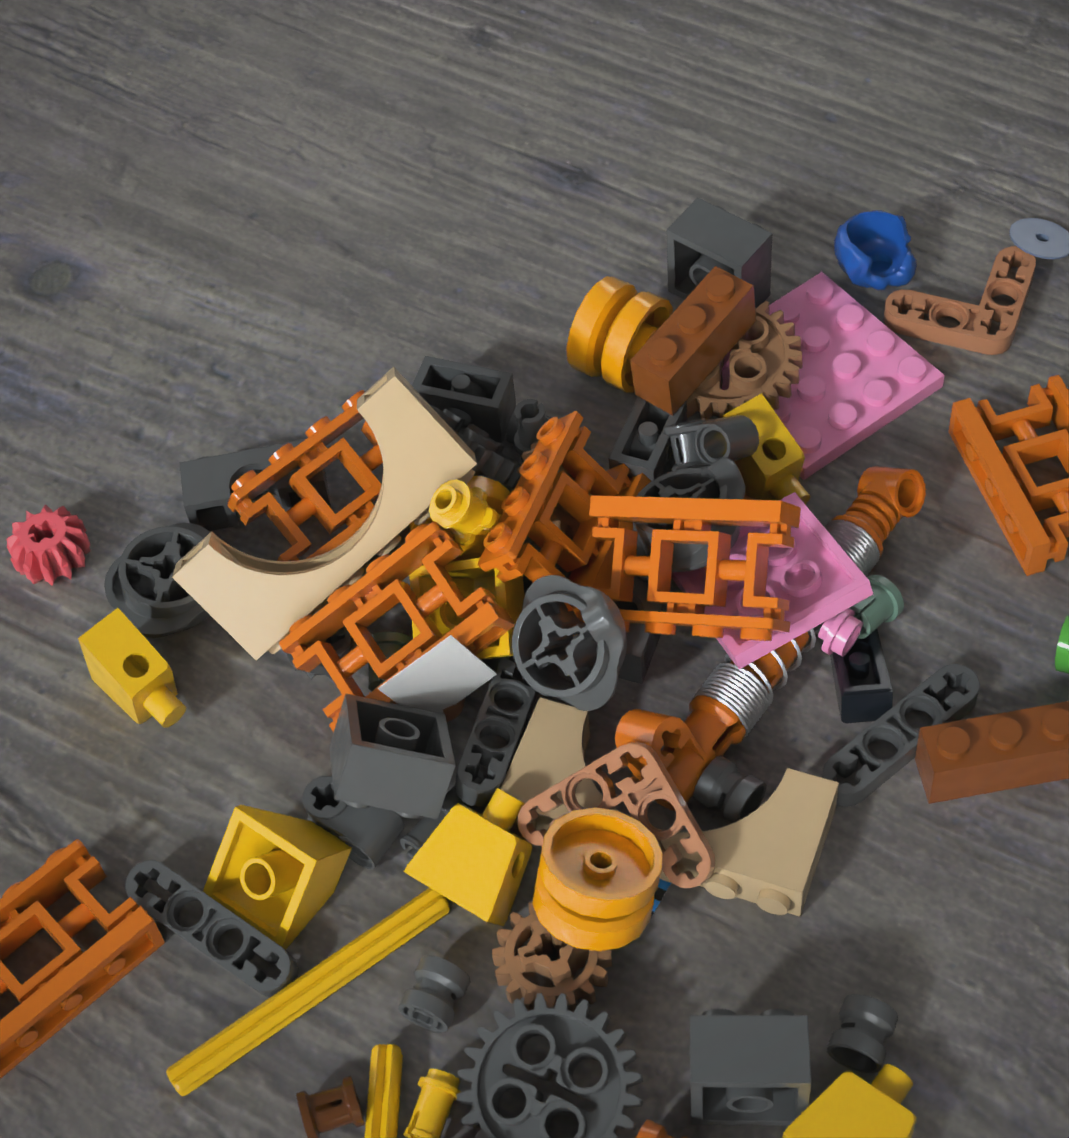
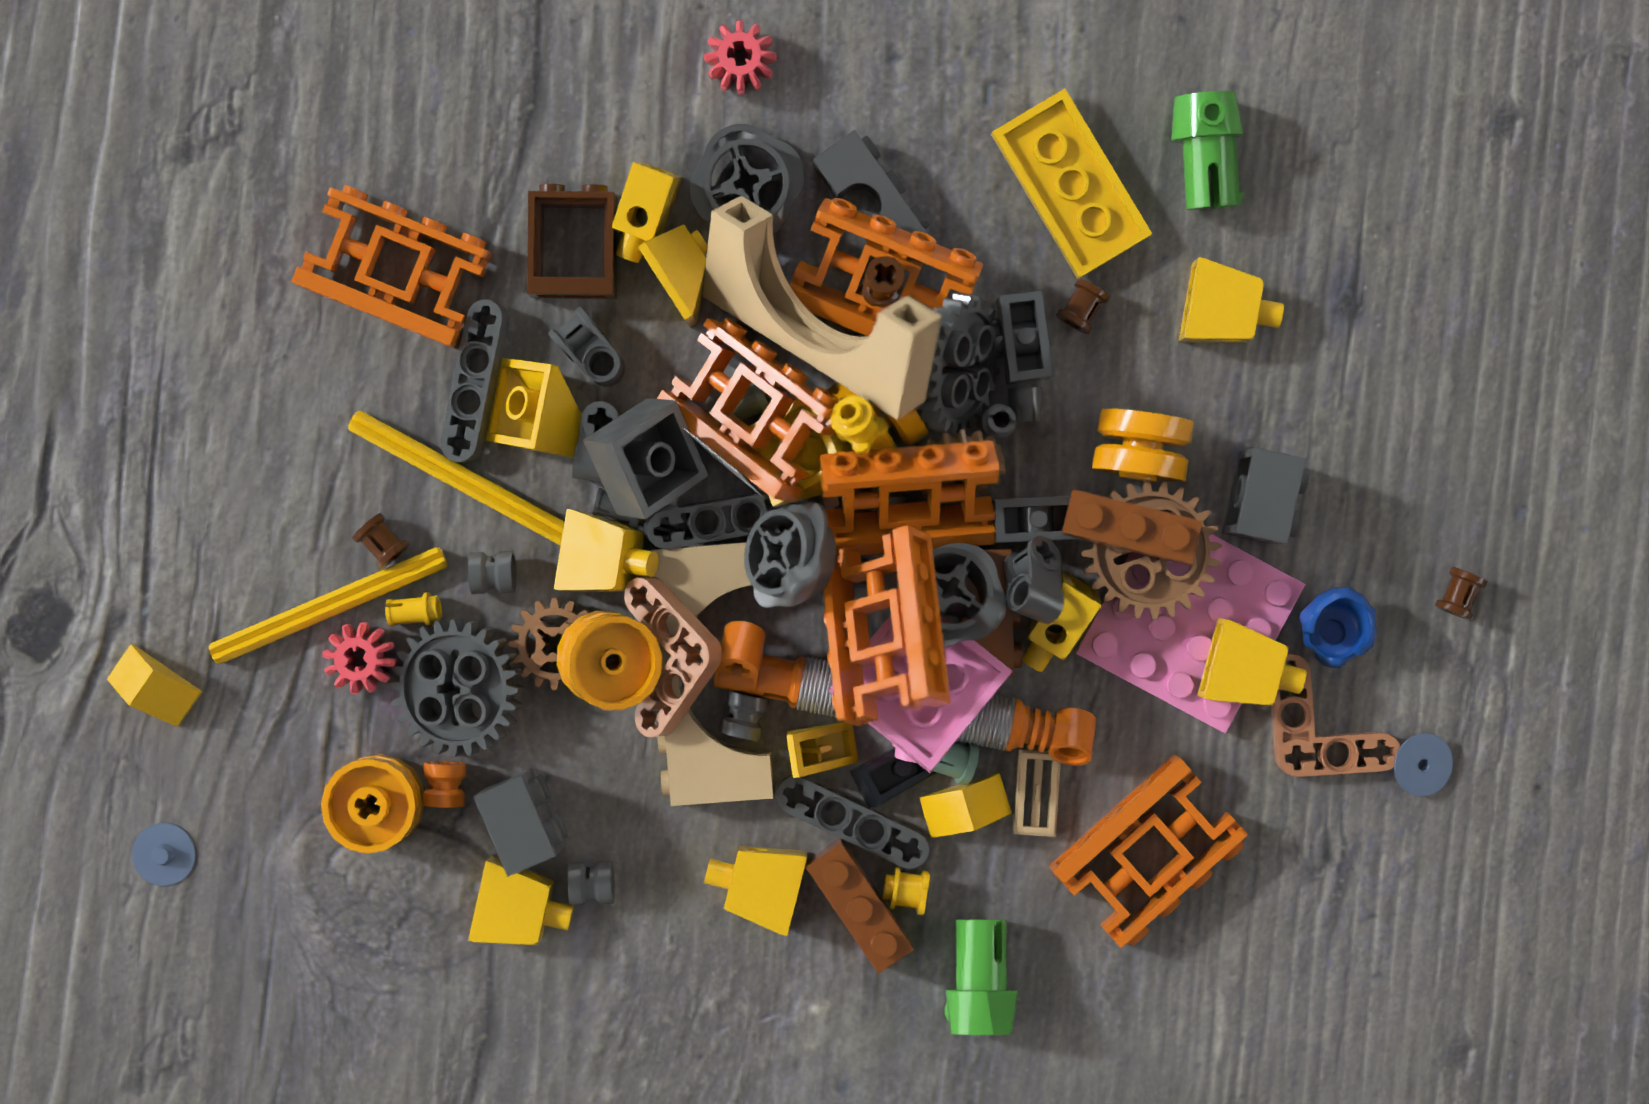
camera: 60 degrees right, 35 degrees up
(165, 789) = (570, 287): none -> reddish brown window
(222, 672) = (680, 267): none -> yellow slope
(243, 785) = (584, 343): none -> dark grey piece
(338, 474) = (883, 293): none -> reddish brown bush
(342, 328) = (1071, 183): none -> yellow plate
(356, 210) = (1208, 131): none -> bright green piece
(456, 346) = (1082, 306): none -> reddish brown bush
(522, 251) = (1225, 305): none -> yellow torso
(800, 736) = (821, 748): none -> yellow slope
(879, 321) = (1247, 667): none -> yellow torso
(885, 165) = (1461, 593): none -> reddish brown bush
(927, 625) = (965, 806): none -> yellow slope
(936, 560) = (1034, 829): none -> tan tile
(940, 845) = (761, 884): none -> yellow torso
(1004, 693) = (906, 890): none -> yellow brick

